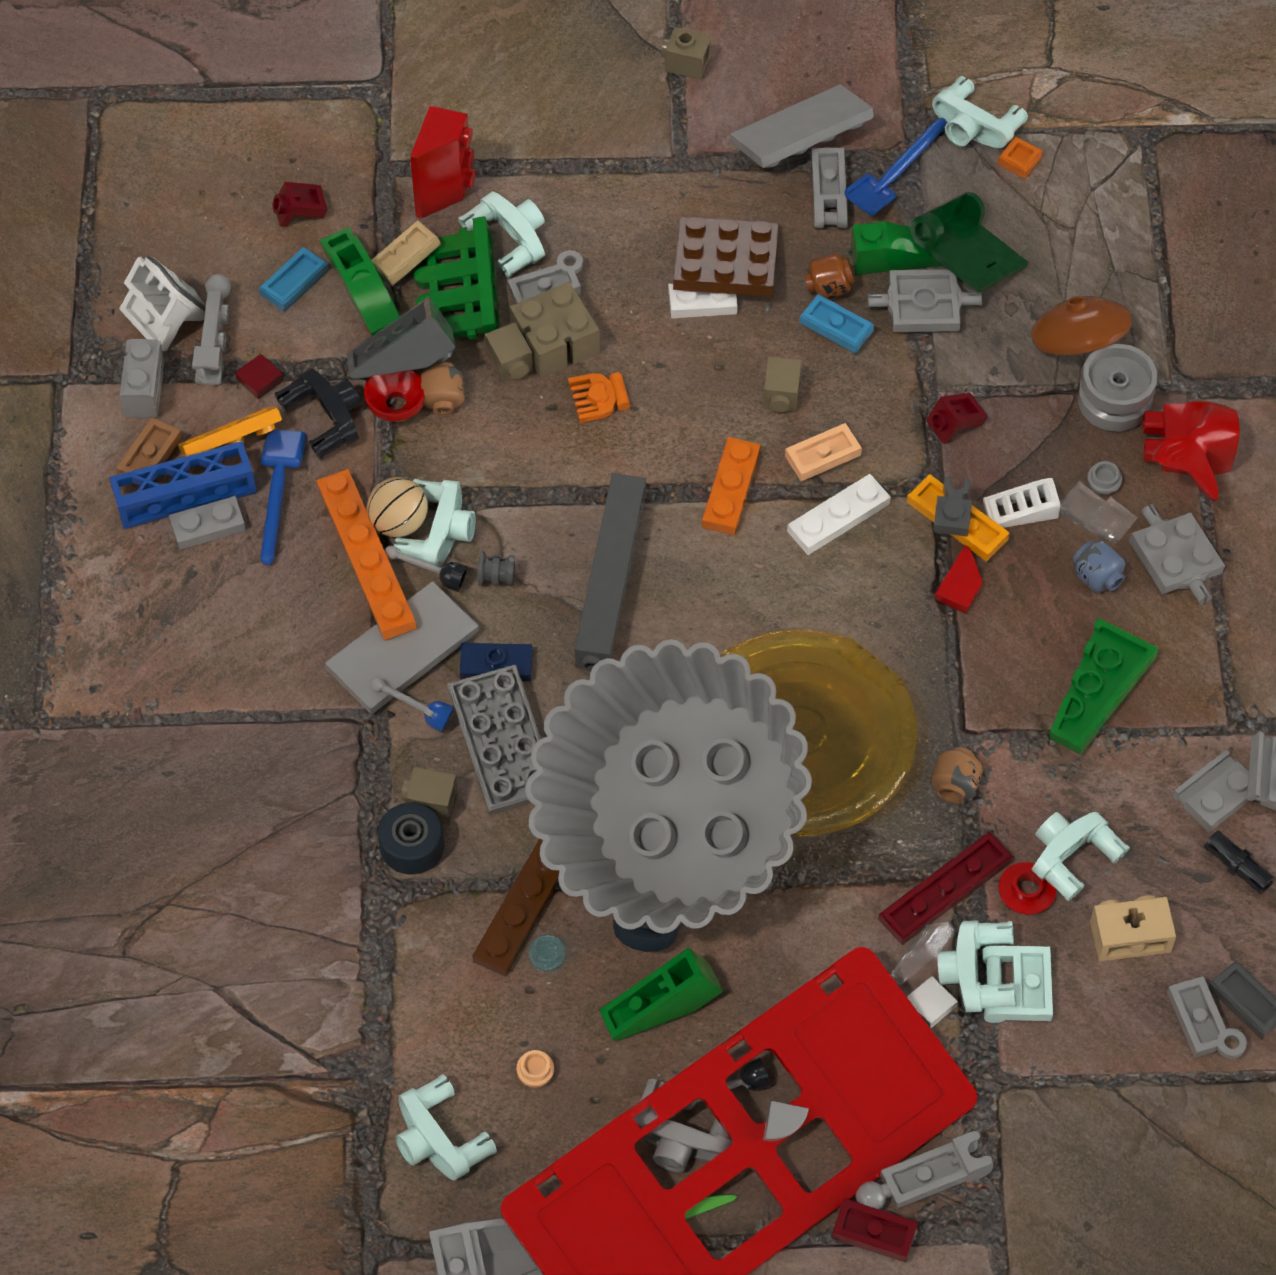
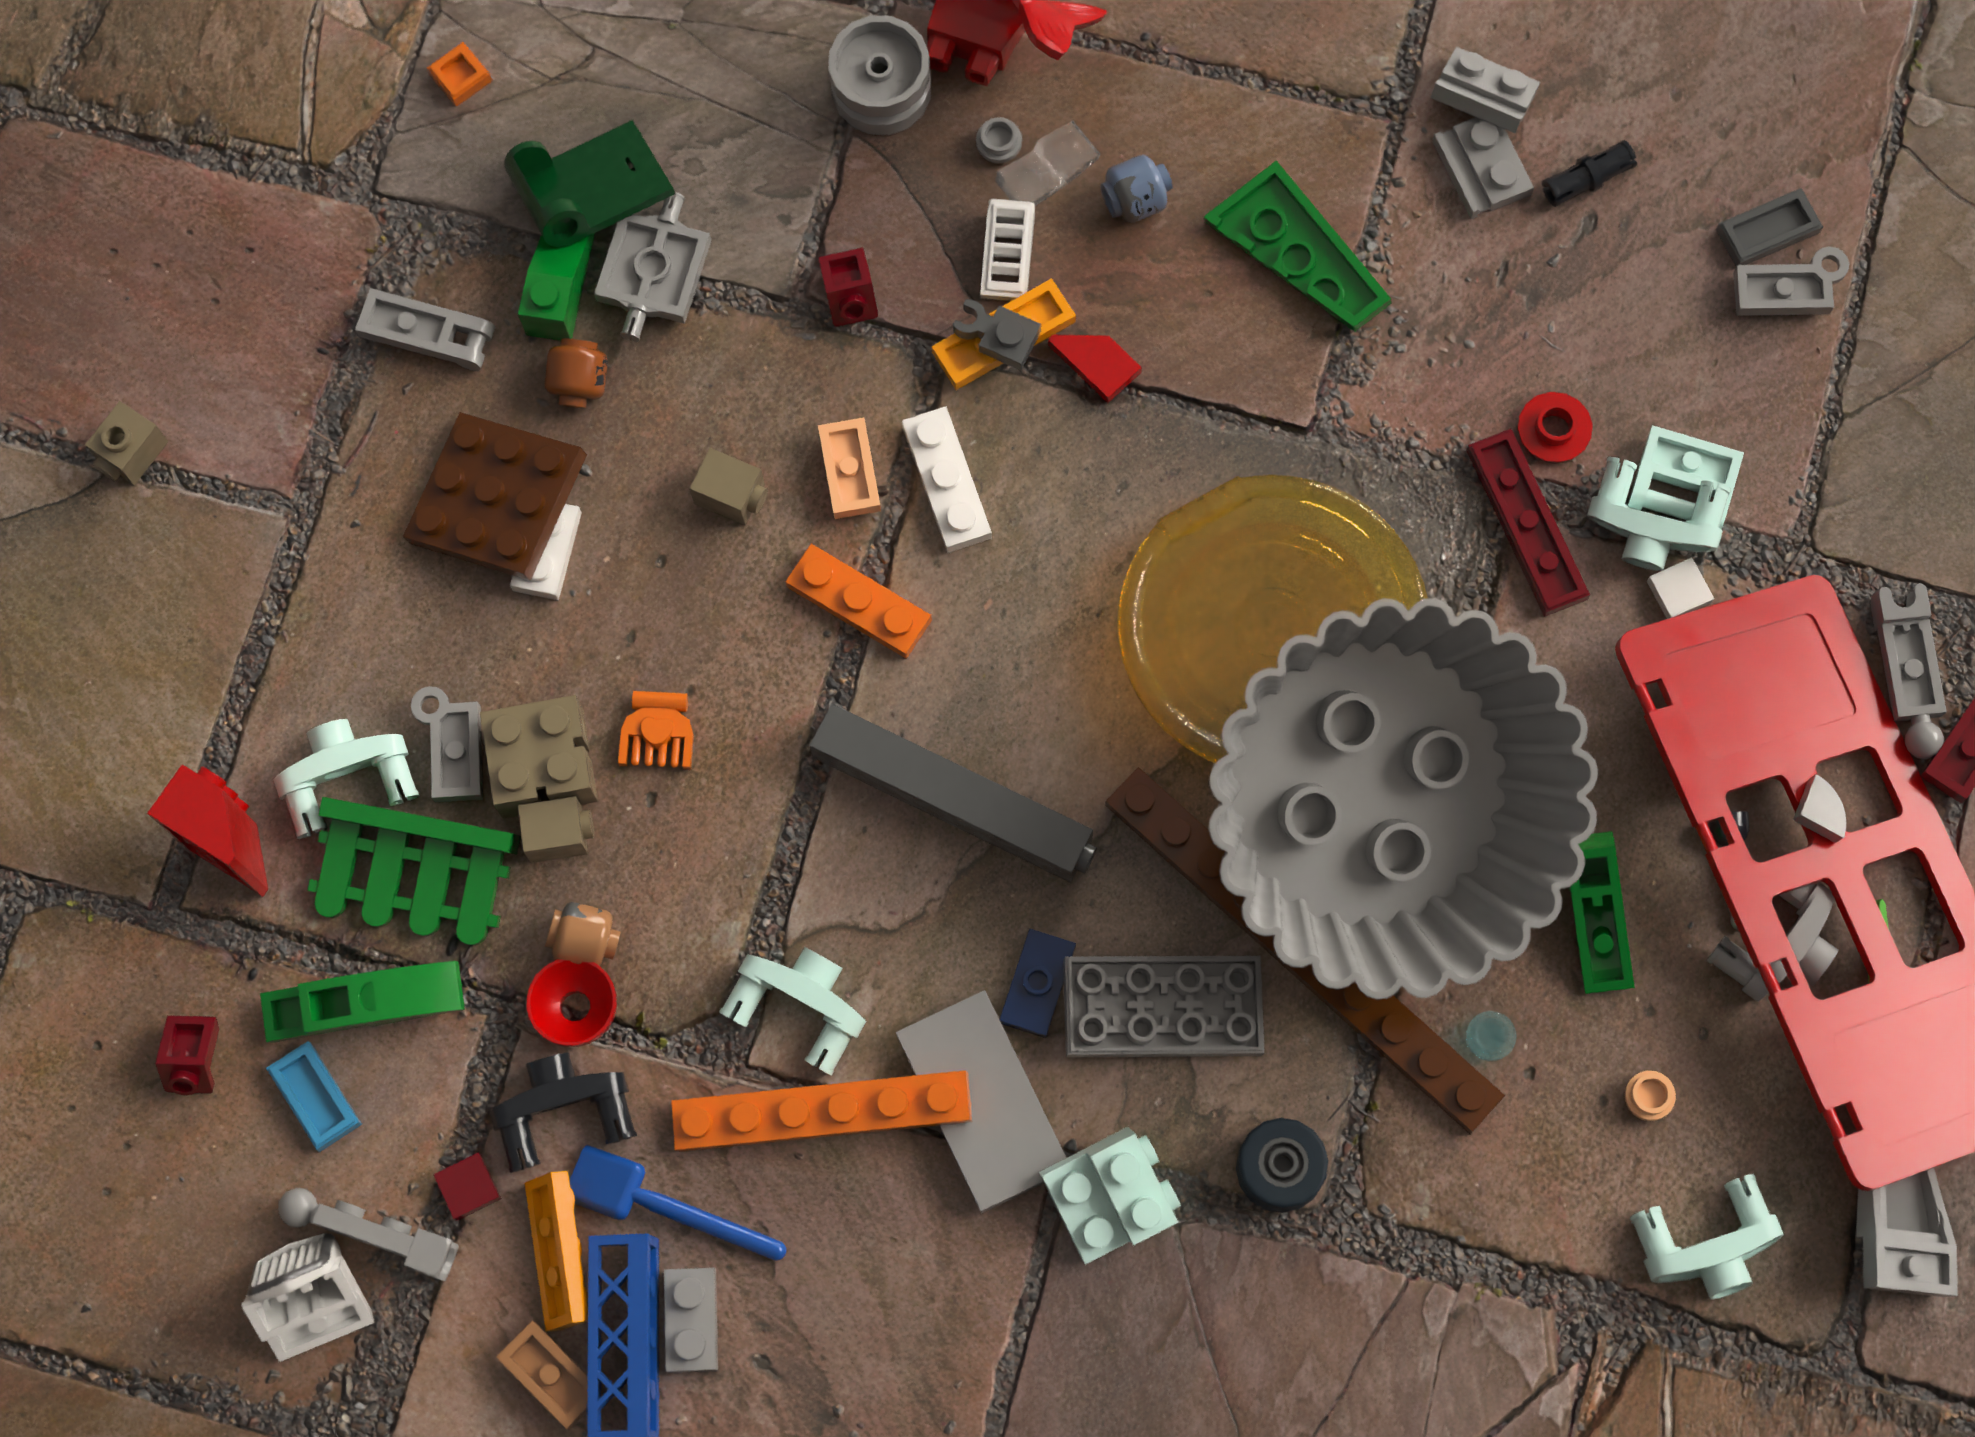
camera: 70 degrees left, 15 degrees up
(142, 378) = (423, 1355): light grey brick -> none
(358, 736) = (1111, 1194): none -> light aqua plate
(397, 507) = (768, 1047): tan piece -> none
(405, 252) = (336, 926): tan plate -> none
(405, 344) = (508, 970): dark grey slope -> none
(432, 789) = (1222, 1123): dark tan brick -> none
(435, 714) = (1102, 1082): hinge -> none
(450, 575) = (889, 1005): hinge -> none
(496, 569) = (899, 942): dark grey bush -> none
(802, 126) = (315, 330): light grey tile -> none
(836, 323) = (650, 388): dark azure plate -> none
(873, 194) = (452, 278): blue piece -> none
(923, 950) = (1614, 573): clear tile -> none
(956, 775) = (1385, 456): medium nougat head -> none
(970, 122) = (382, 117): light aqua connector -> none
(1064, 839) = (1516, 362): light aqua connector -> none
(1081, 325) = (774, 86): dark orange dish -> none
(1151, 930) = (1661, 301): tan brick -> none
(1176, 553) = (1136, 94): light grey plate -> none

